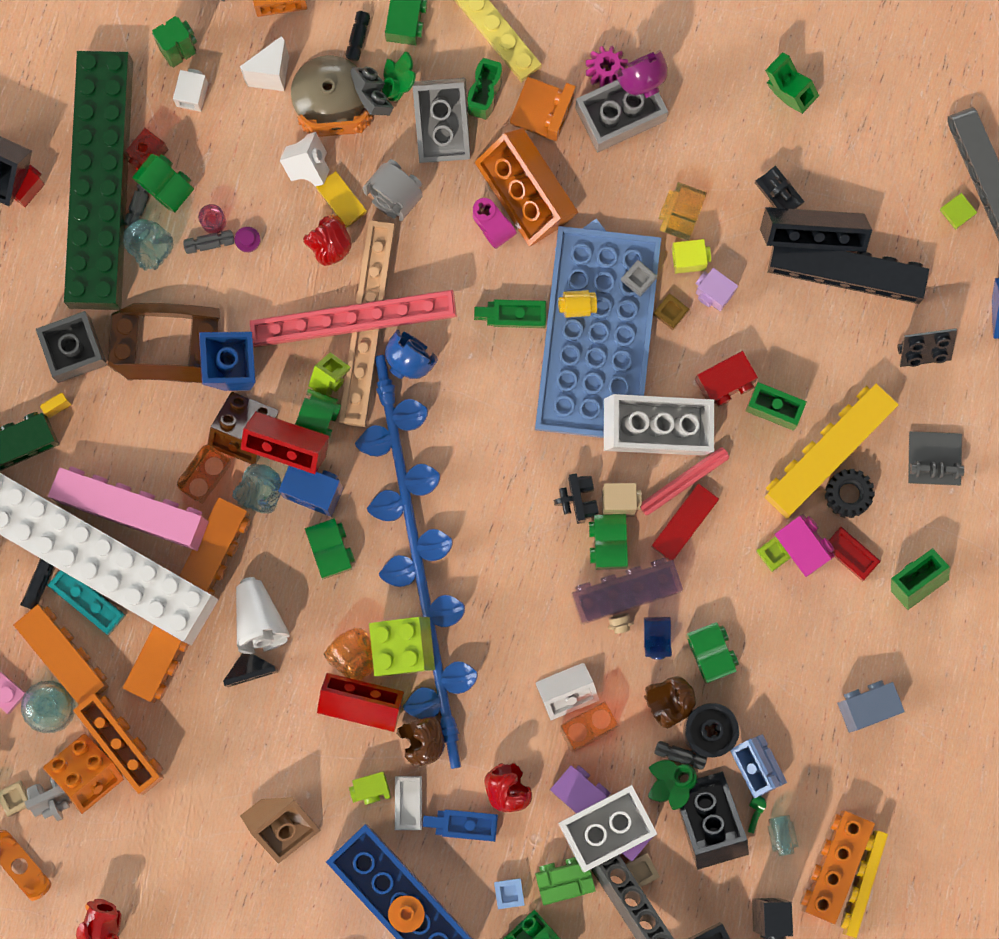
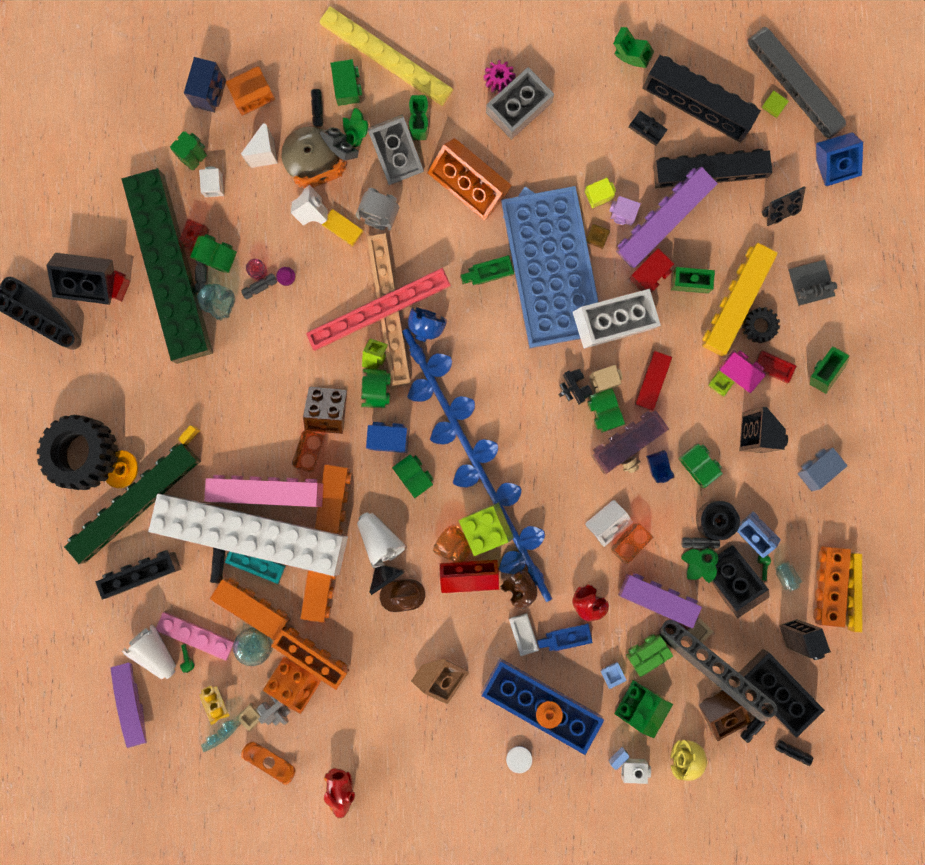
camera: 15 degrees left, 5 degrees up
(71, 347) = (186, 390): dark grey brick -> none
(124, 337) = (278, 362): reddish brown wedge -> none
(227, 360) = (299, 366): blue slope -> none
(258, 489) = (350, 449): clear light blue hair -> none
(265, 702) = (402, 595): none -> reddish brown piece
(285, 442) = (359, 412): red brick -> none
(329, 240) = (344, 259): red hair -> none
(370, 788) = (494, 633): lime brick -> none
(495, 225) = (456, 213): dark pink piece -> none
(543, 108) = (463, 119): orange bracket -> none
(577, 303) = (532, 250): yellow brick -> none
(607, 828) = (671, 613): white brick -> none
(639, 278) = (569, 219): light grey tile -> none
(643, 74) = (530, 72): magenta cylinder -> none
(670, 701) = (683, 508): reddish brown hair -> none
(681, 211) = (585, 162): clear yellow brick -> none
(684, 481) = (644, 351): coral axle -> none
(766, 313) = (666, 217): none -> medium lavender brick
(800, 631) = (762, 432): none -> black slope
(815, 229) = (682, 146): black brick -> none
(859, 174) = (701, 98): none -> black brick

